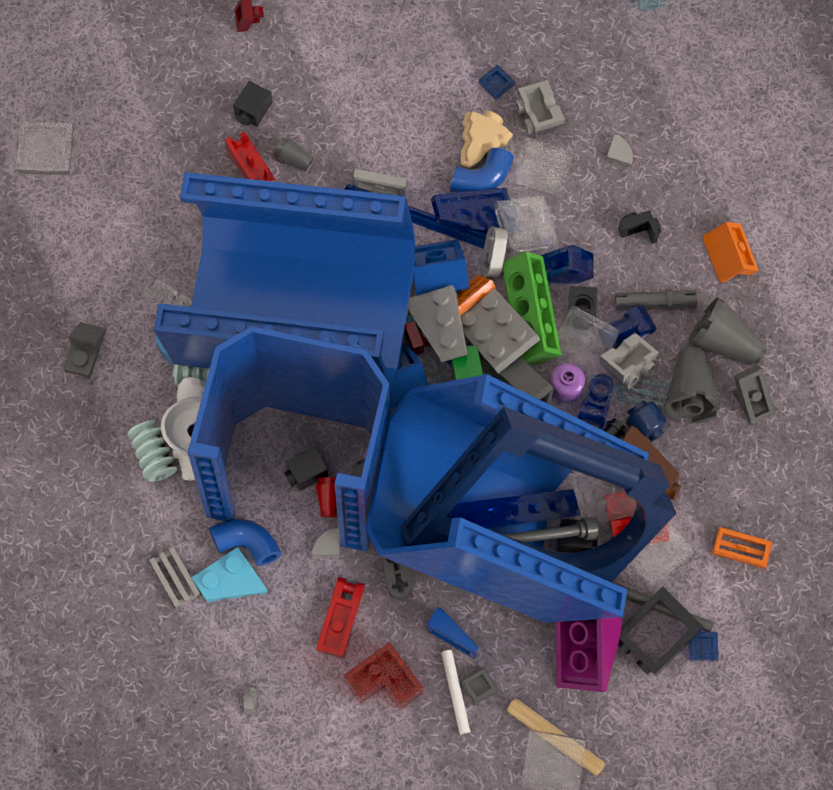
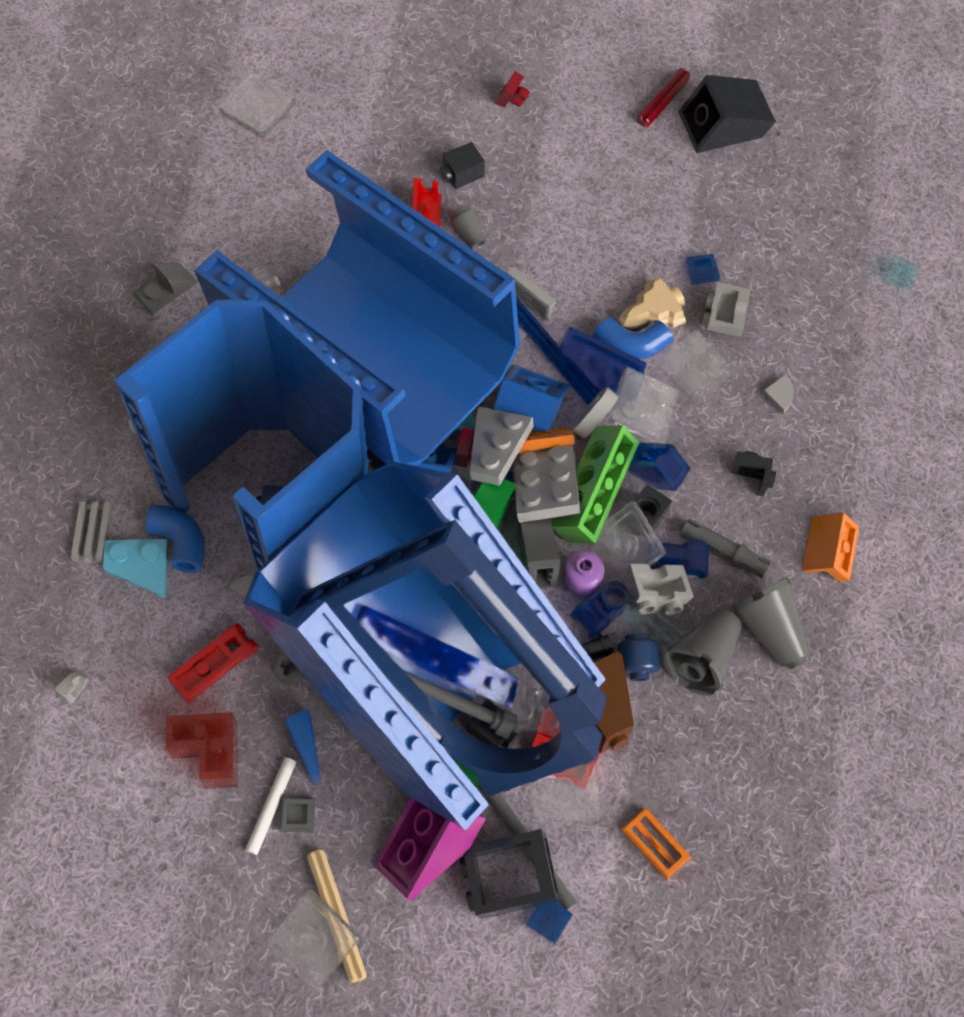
camera: 30 degrees right, 5 degrees down
(753, 394) = (766, 696): dark grey slope -> none

